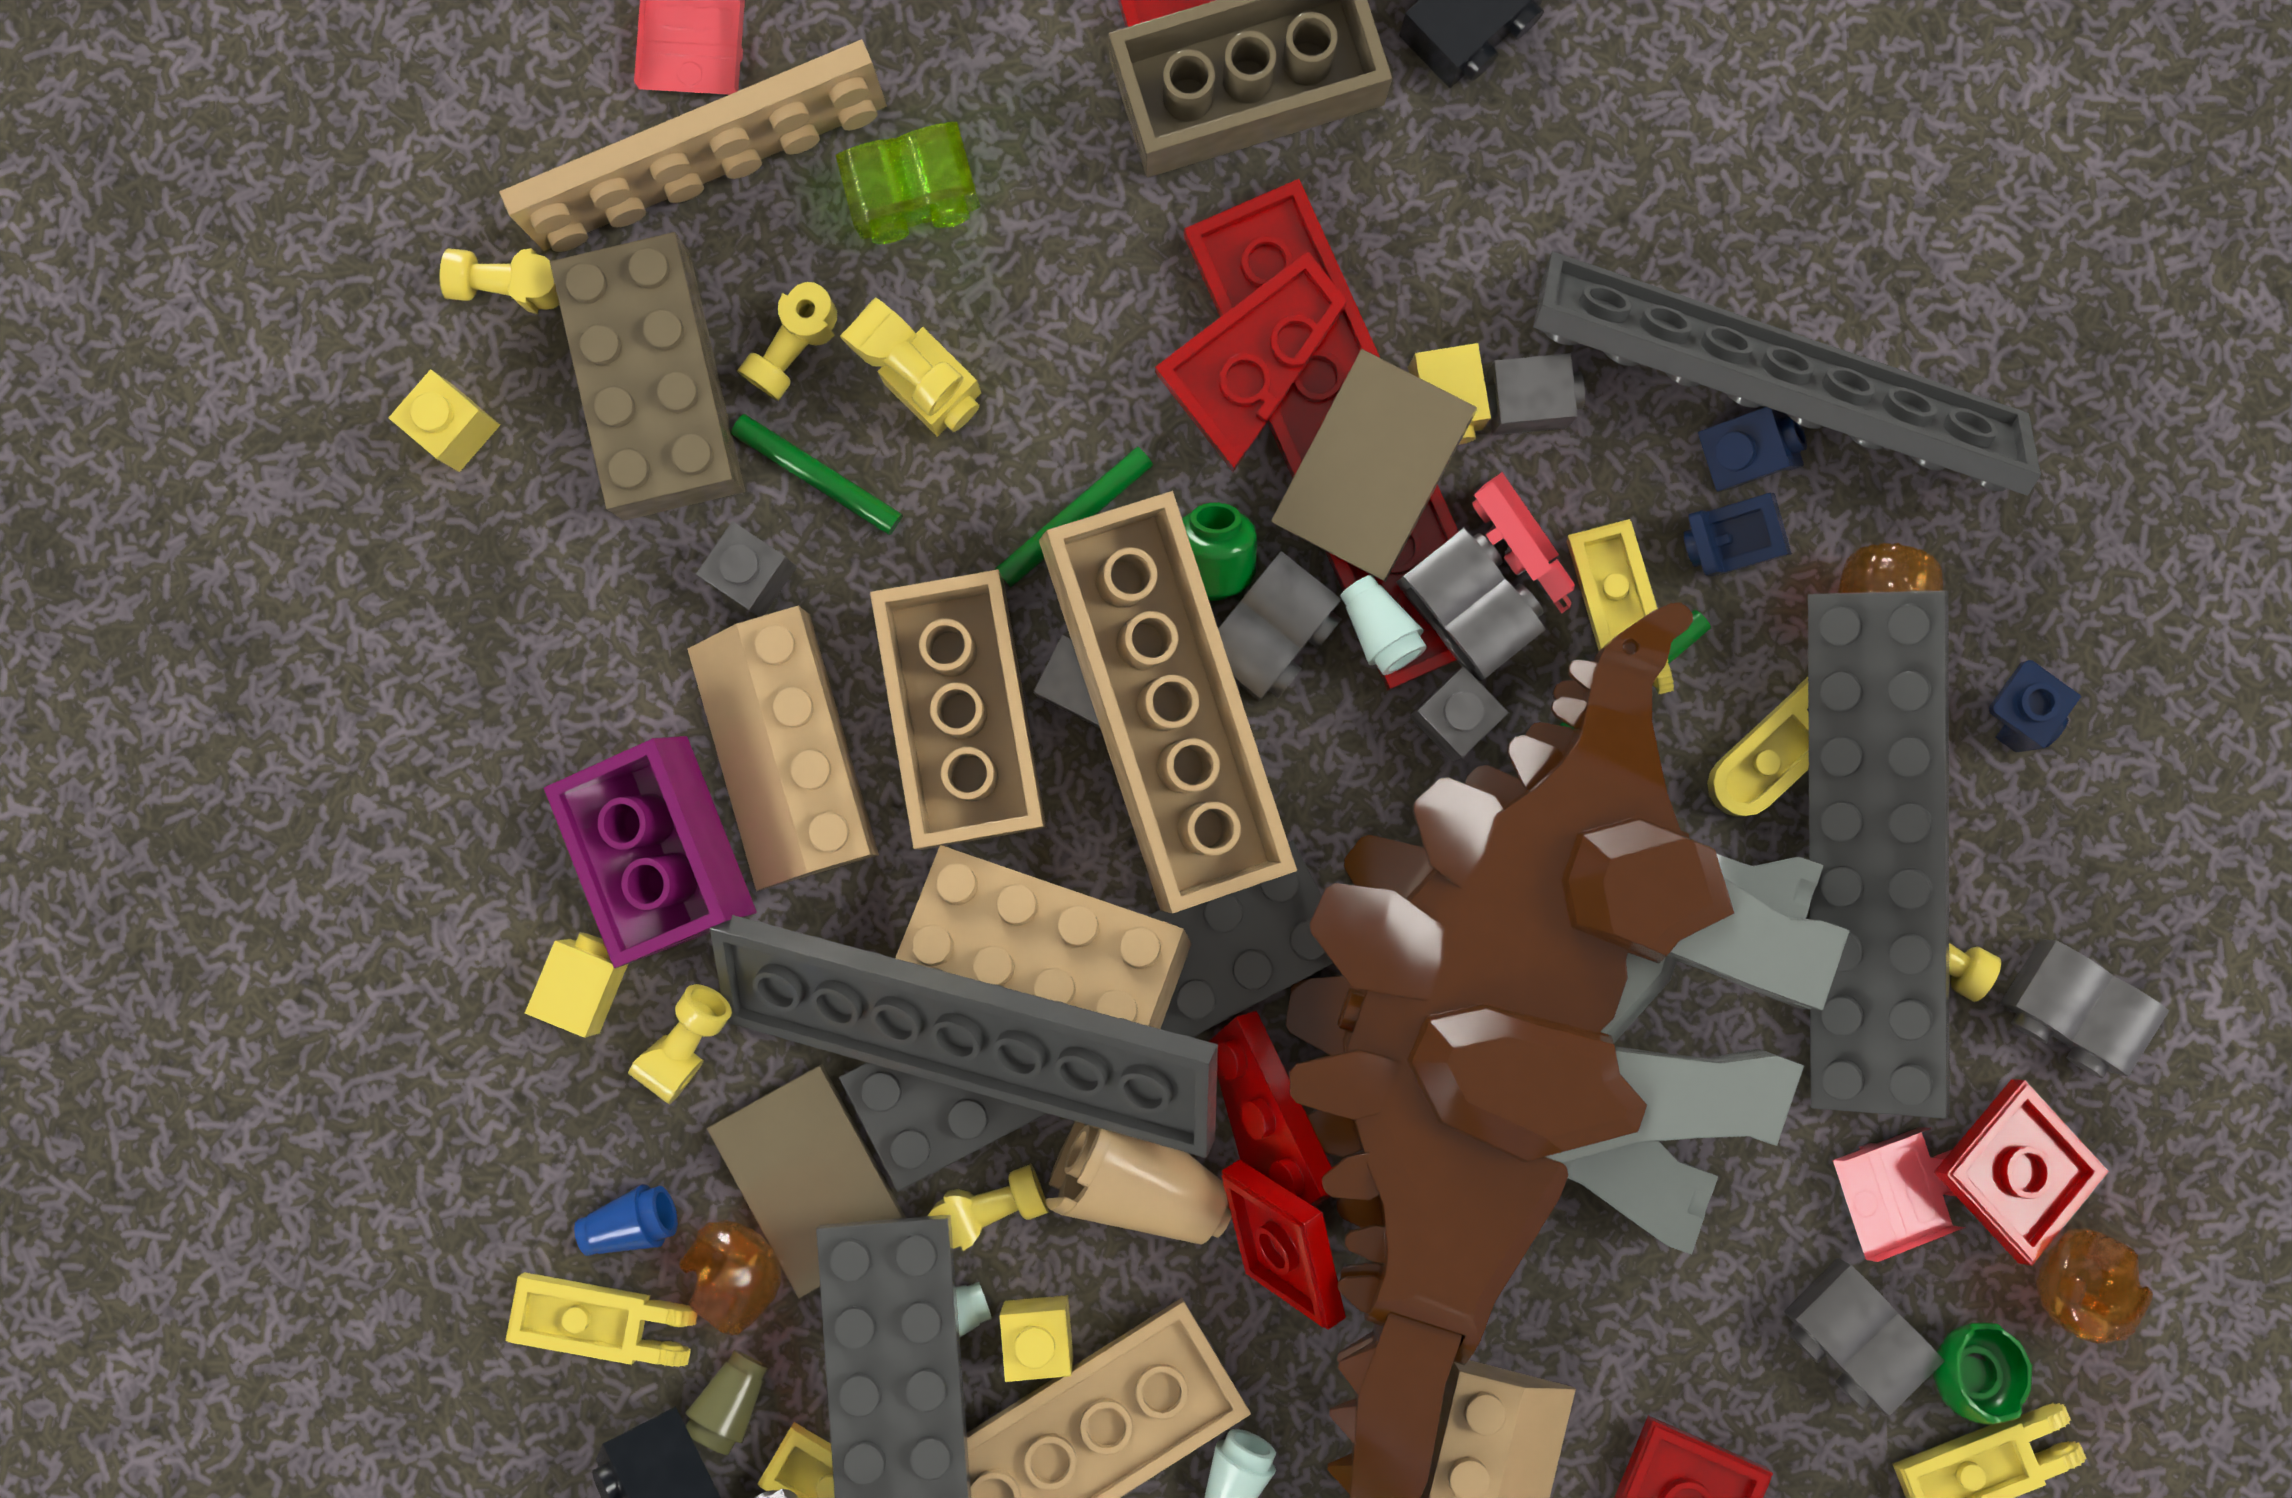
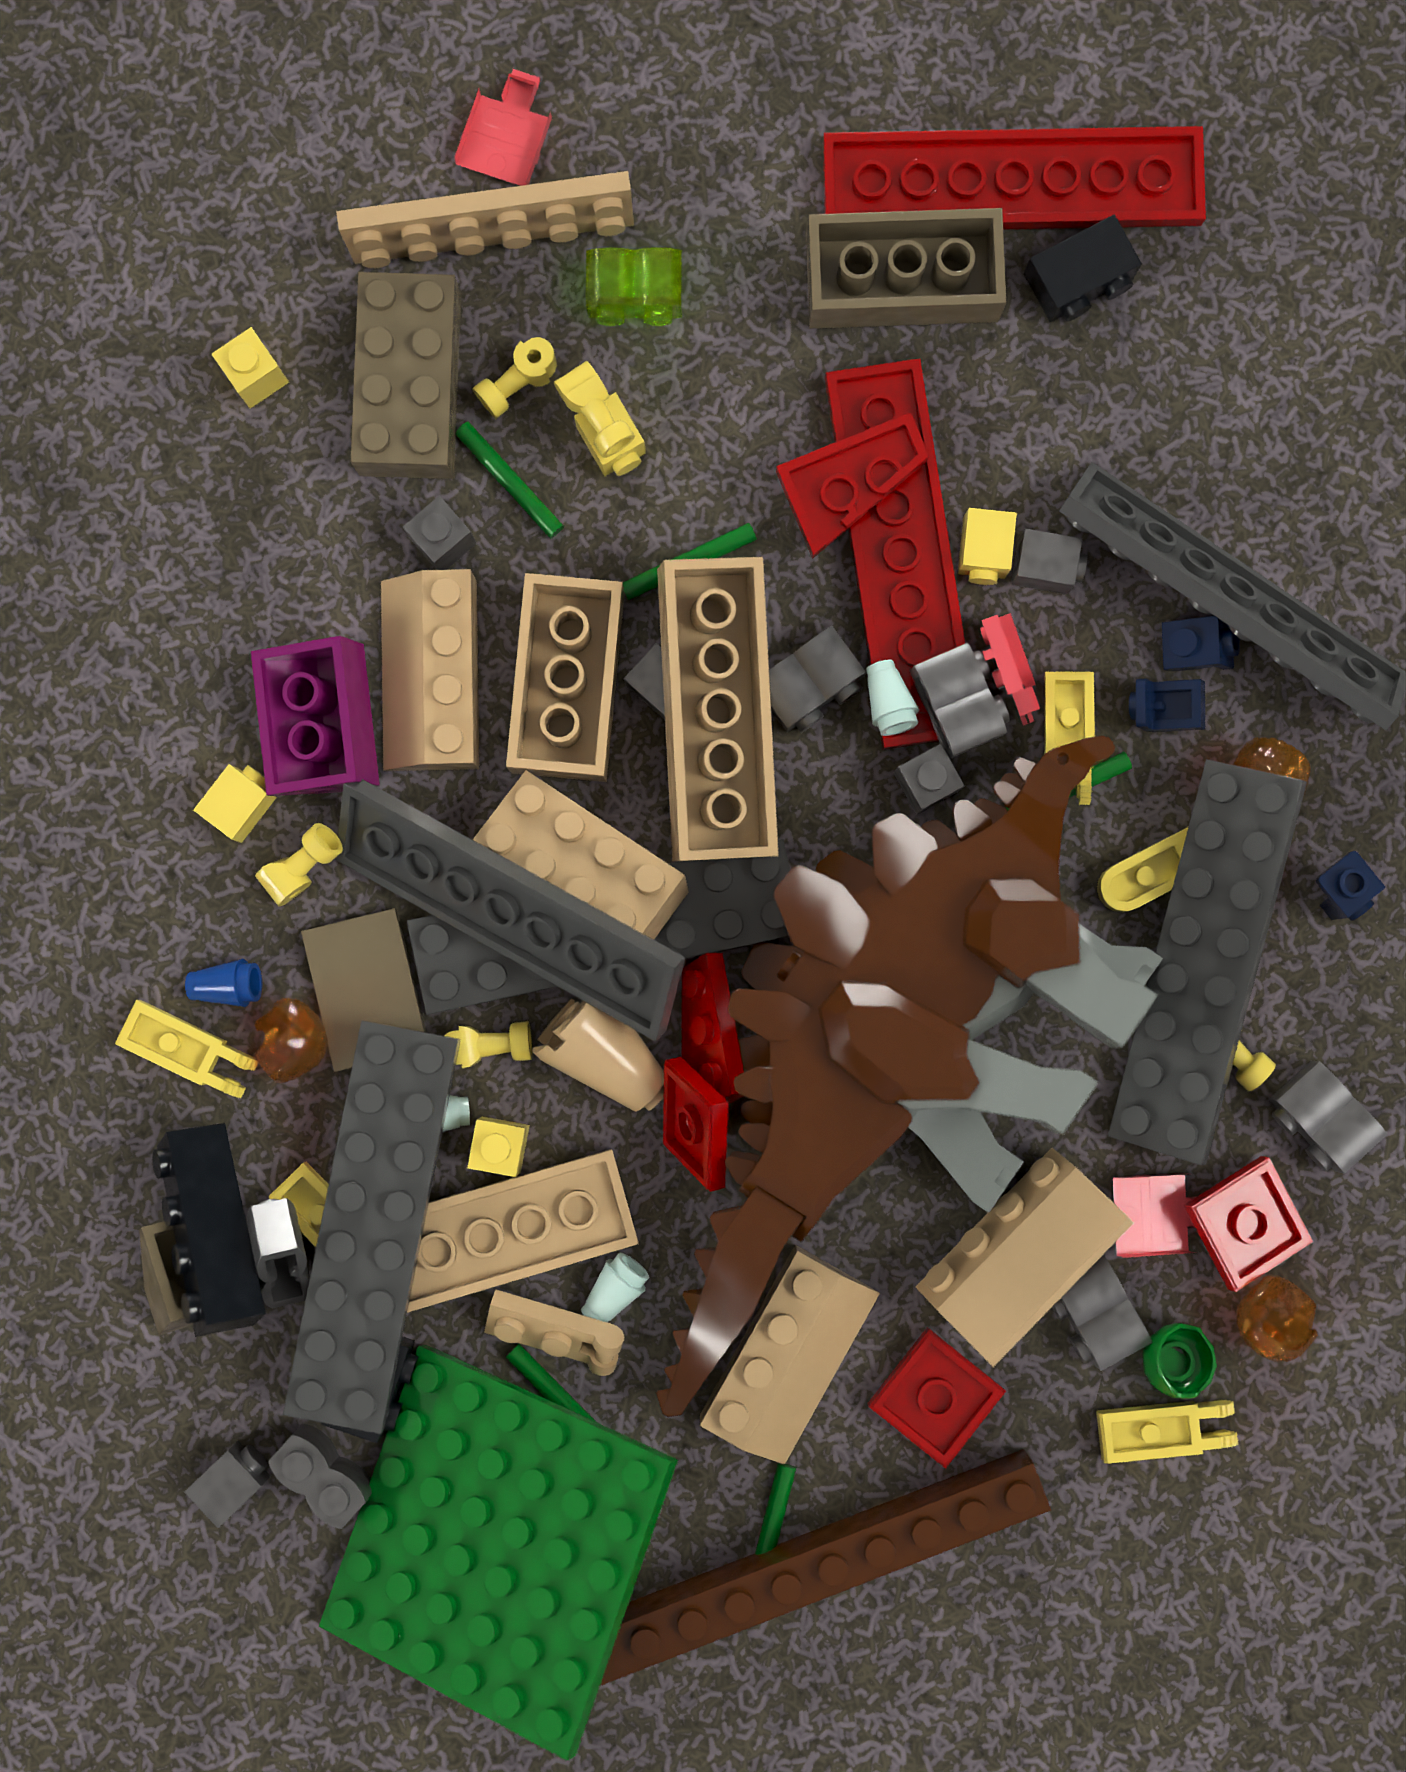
camera: 15 degrees right, 0 degrees up
(525, 279) = (337, 281): light yellow leg -> none
(726, 1404) = (262, 1133): olive cone -> none
(1223, 548) = (788, 612): green head -> none
(1374, 465) = (916, 580): dark tan tile -> none
(1751, 1299) = (1023, 1255): none -> tan slope

